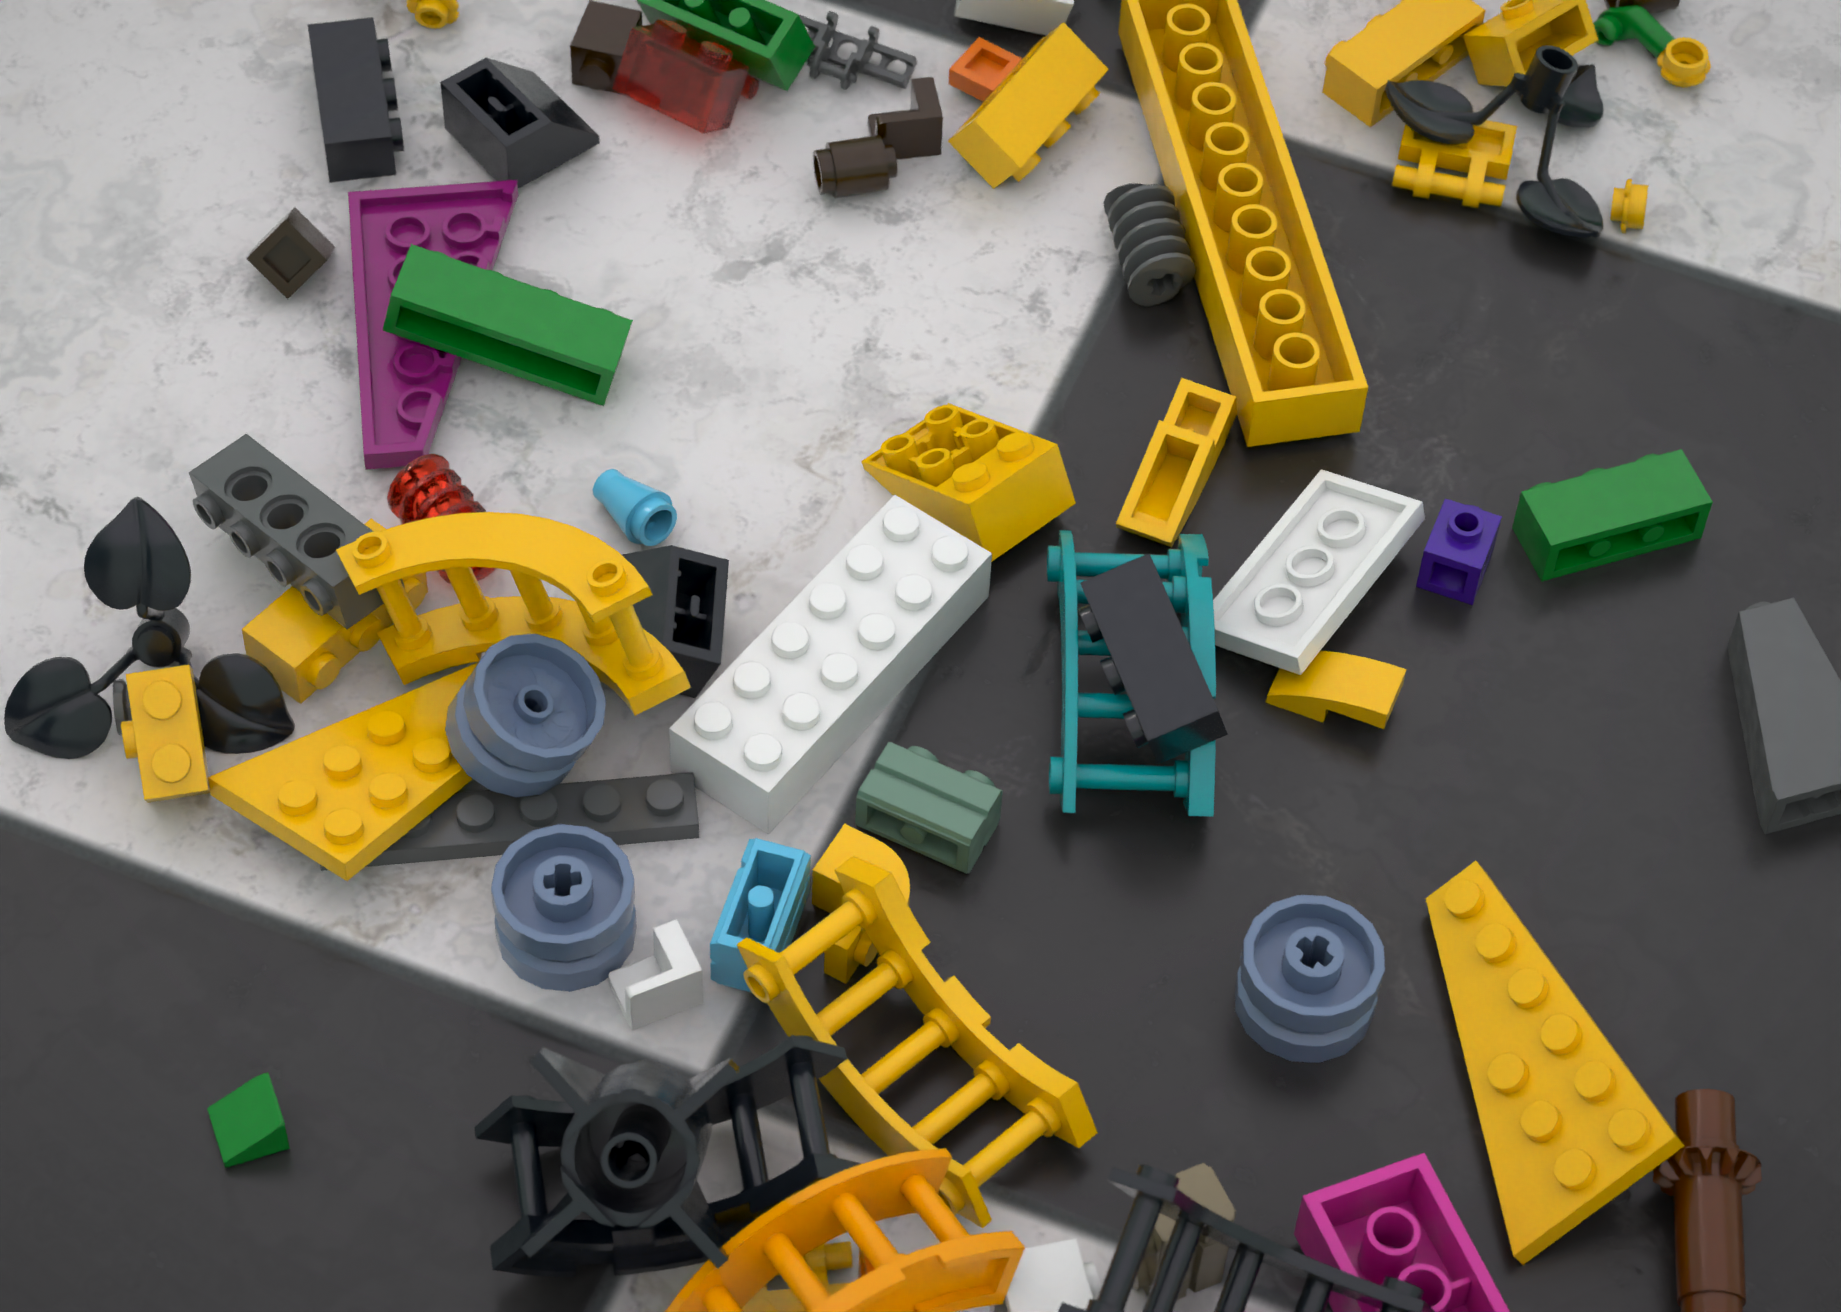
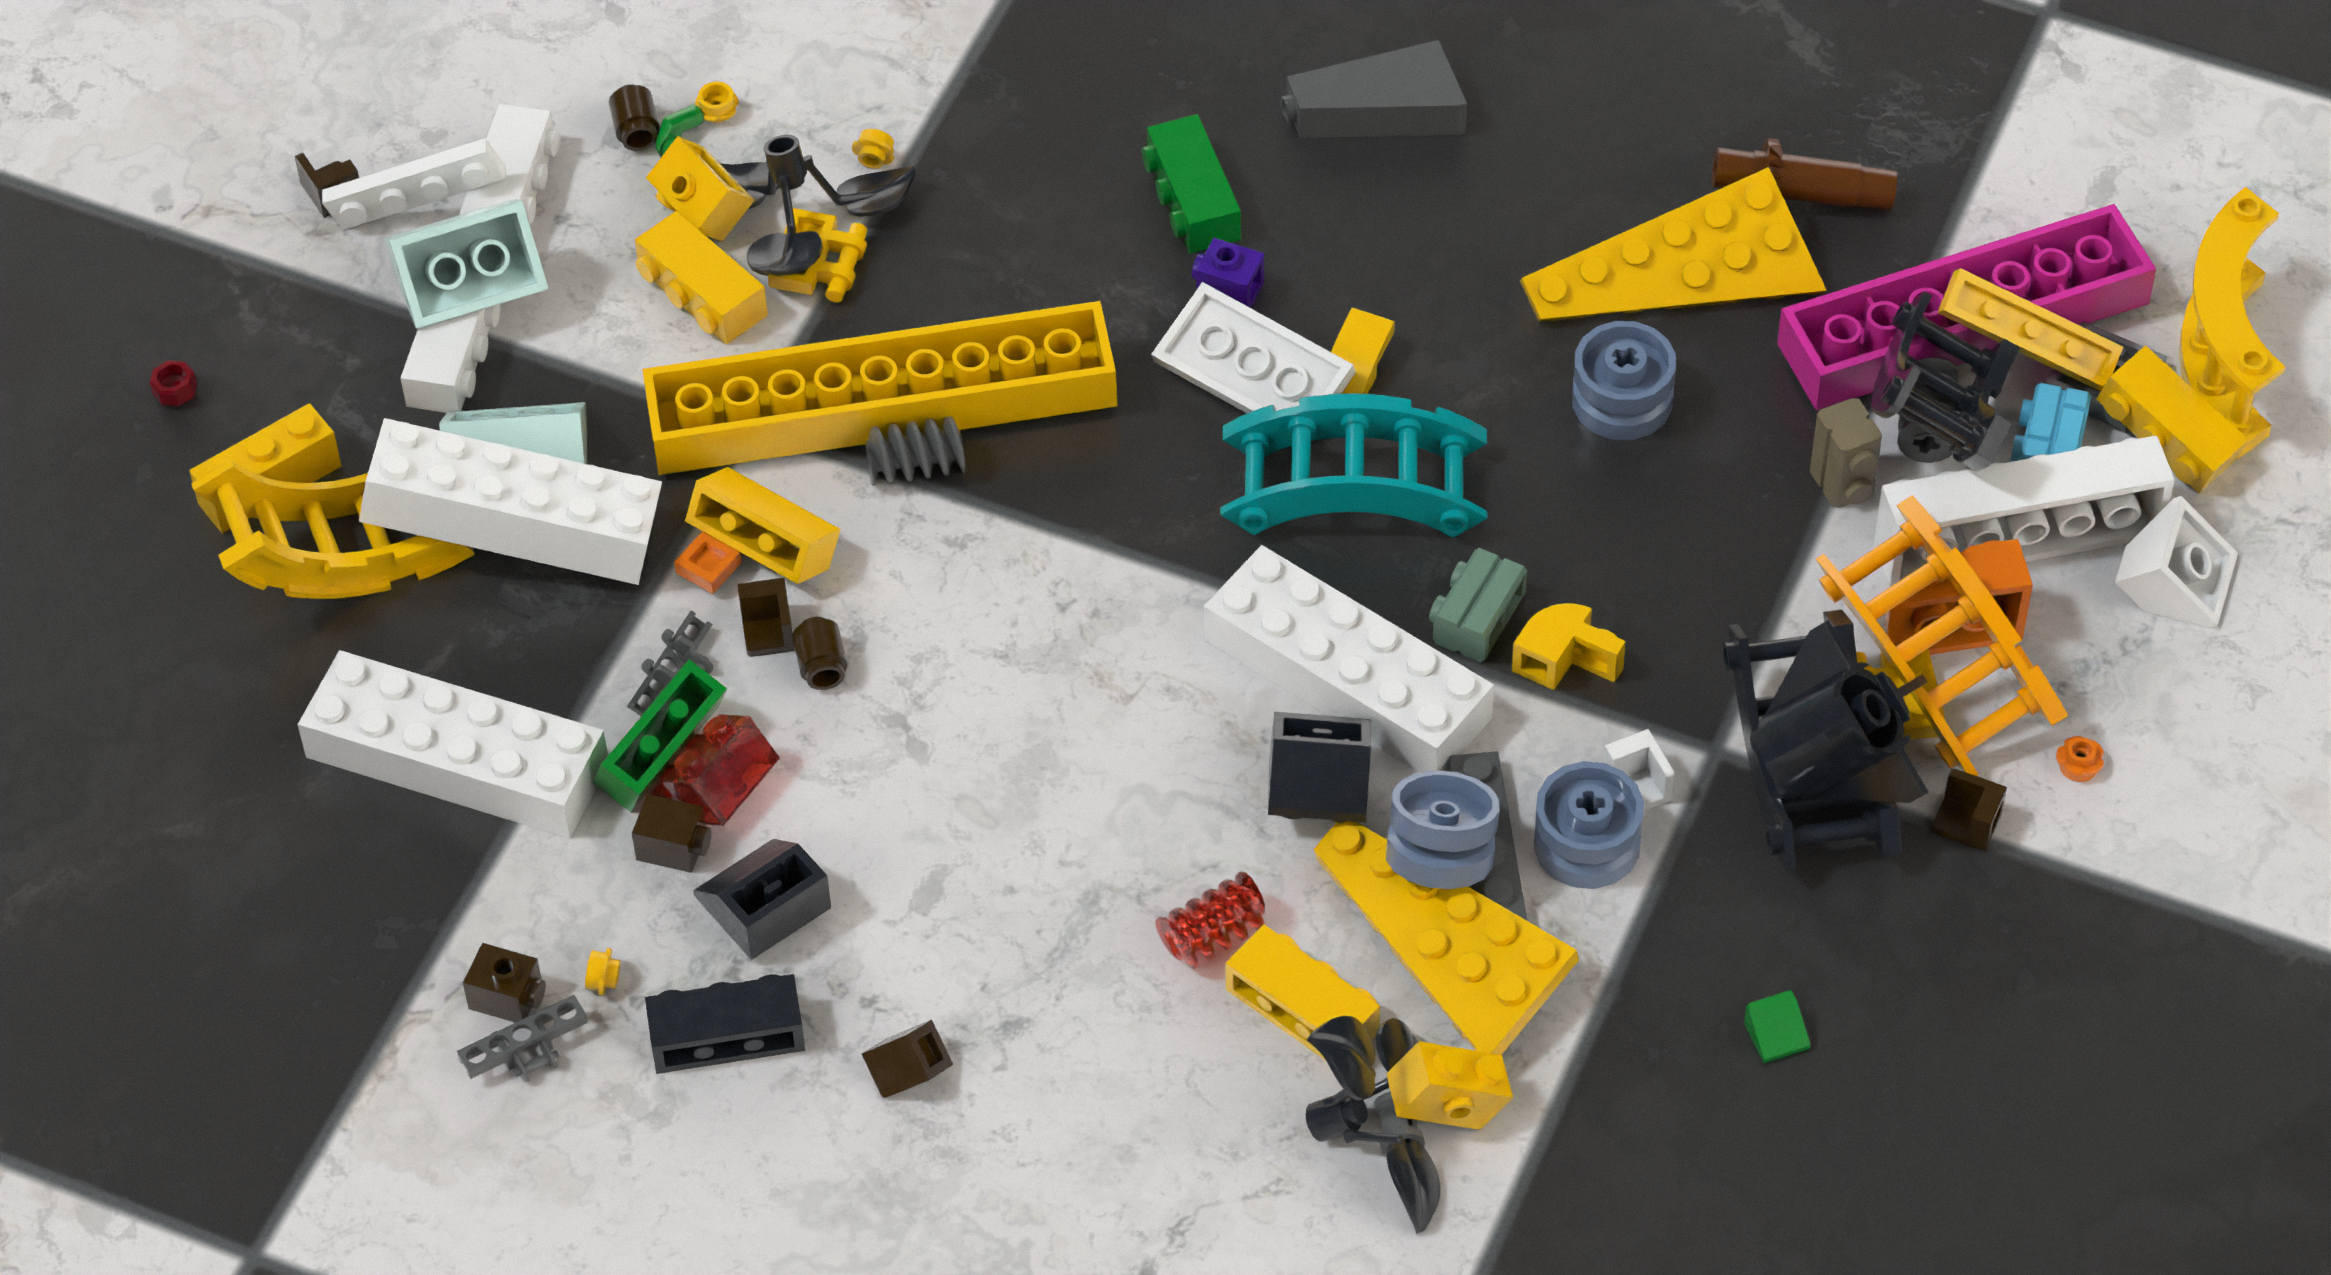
camera: 85 degrees left, 0 degrees up
(283, 524) = (1299, 940): dark grey brick -> none
(400, 379) = (954, 963): magenta wing -> none
(506, 324) = (1011, 880): green brick -> none
(534, 549) = (1336, 809): yellow fence -> none
(638, 509) = (1189, 799): medium azure cone -> none
(761, 905) = (1592, 698): medium azure brick -> none
(950, 1018) = (1634, 606): yellow fence -> none
(975, 476) = (1155, 578): yellow slope -> none
(1150, 660) = (1393, 424): black brick -> none
(1178, 462) = (1142, 444): yellow slope -> none

